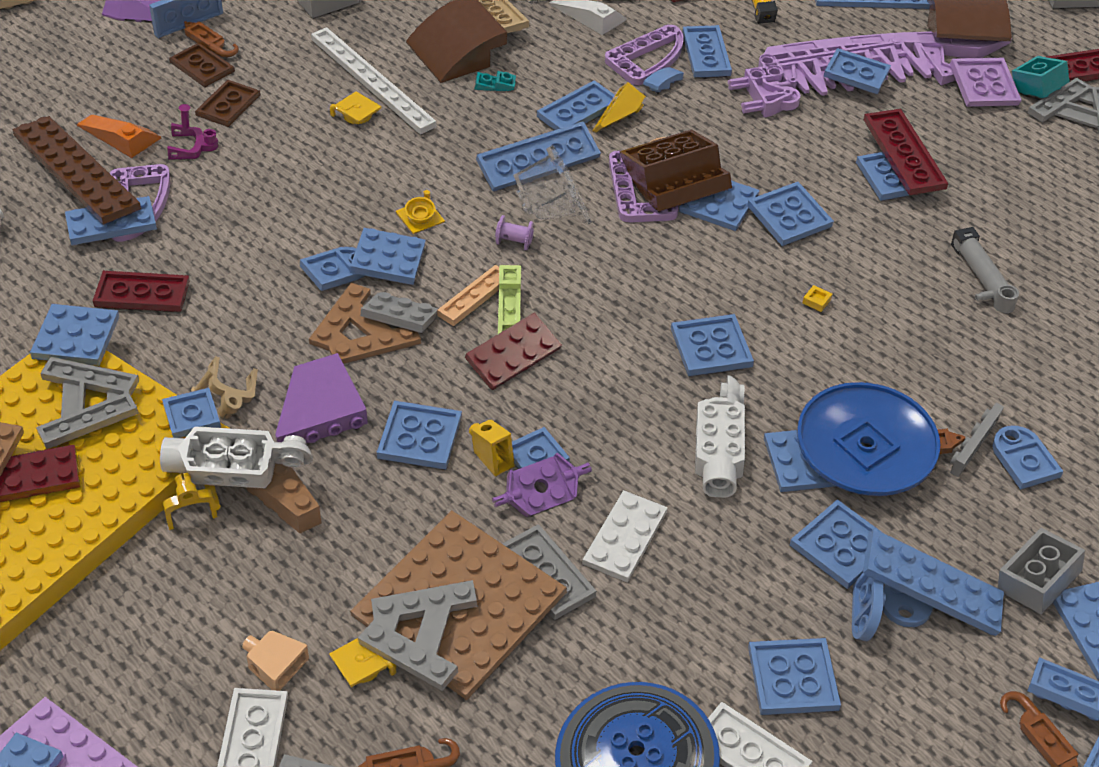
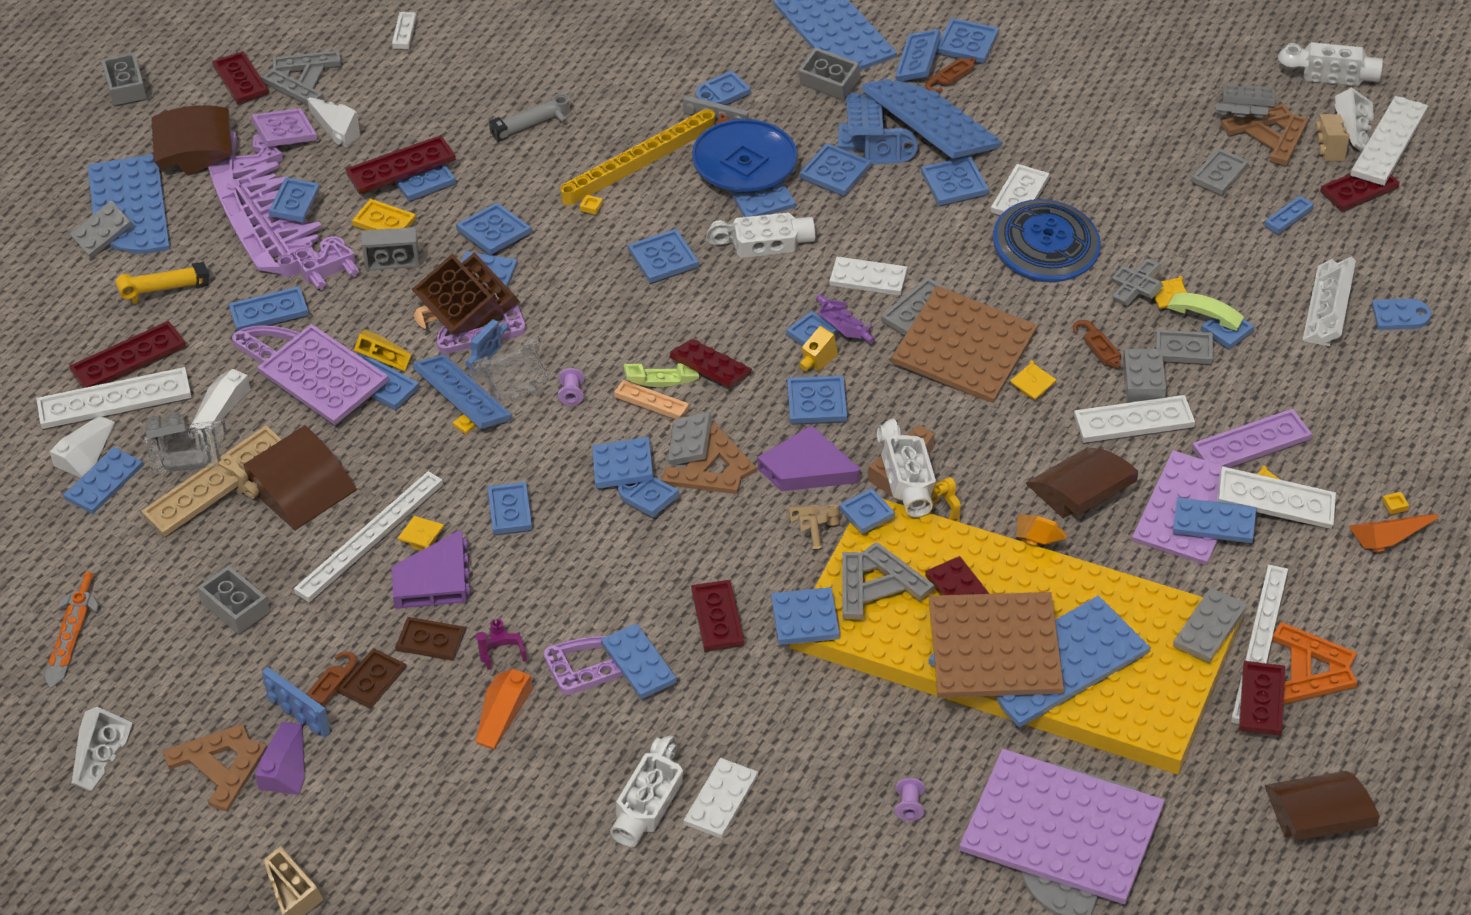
camera: 100 degrees left, 0 degrees up
(77, 170) = (574, 710): reddish brown plate -> none
(89, 583) = (1038, 530): none -> light orange wedge
(155, 658) = (1083, 481): none -> reddish brown slope
(275, 658) = (1052, 424): light nougat torso -> none
(299, 109) = (433, 575): none -> medium lavender slope
(364, 170) = (509, 508): none -> medium blue plate
(419, 656) = (982, 344): light grey plate -> none
(420, 214) = (556, 459): yellow hat -> none
(501, 82) = (349, 448): teal slope -> none
(591, 66) = (323, 374): none -> lavender plate
(594, 174) = (487, 341): none -> medium blue plate
(662, 78) = (328, 328): medium blue slope -> none
(766, 127) = (390, 248): none -> light grey brick
(825, 139) = (382, 216): none -> yellow plate
(898, 353) = (636, 157): none -> yellow beam
(926, 675) = (933, 117): none -> medium blue plate
(991, 118) = (337, 121): none -> white wedge
(1041, 76) = (275, 91): teal slope -> none

